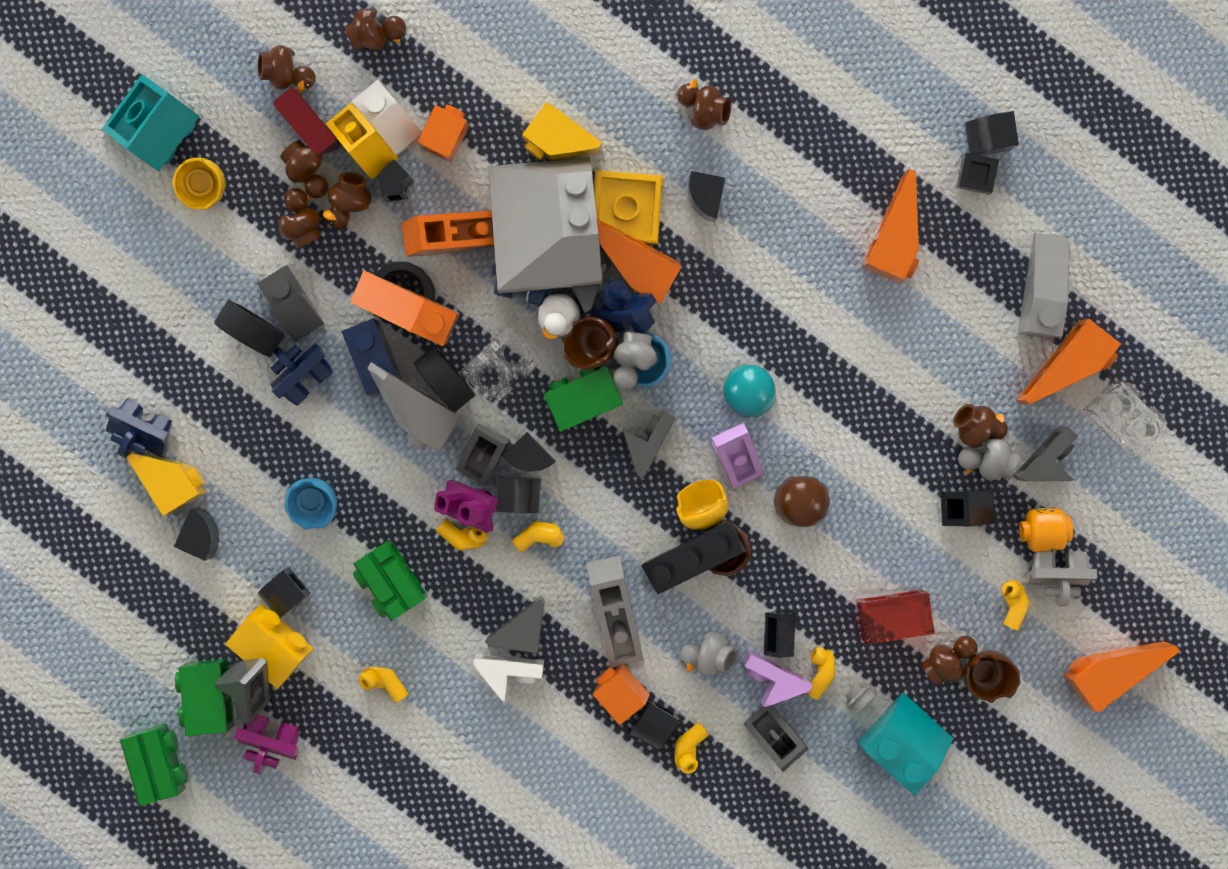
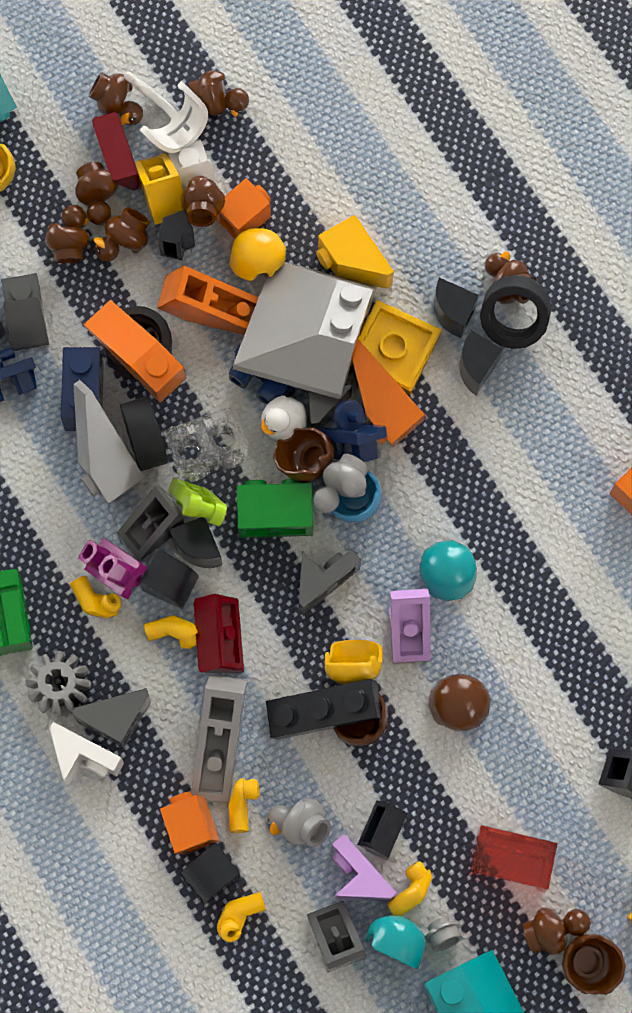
camera: 15 degrees right, 15 degrees down
(340, 92) = (174, 136): none -> white helmet
(405, 145) = (202, 201): none -> reddish brown animal
(459, 631) = (72, 676): none -> light grey gear
(473, 170) = (256, 253): none -> yellow hair
(517, 425) = (198, 501): none -> lime plate
(579, 525) = (218, 634): none -> dark red slope
(653, 660) = (238, 804): none -> yellow arm
(665, 151) = (454, 306): none -> black brick
(720, 116) = (508, 336): none -> black tyre
(827, 721) = (398, 939): none -> teal hair

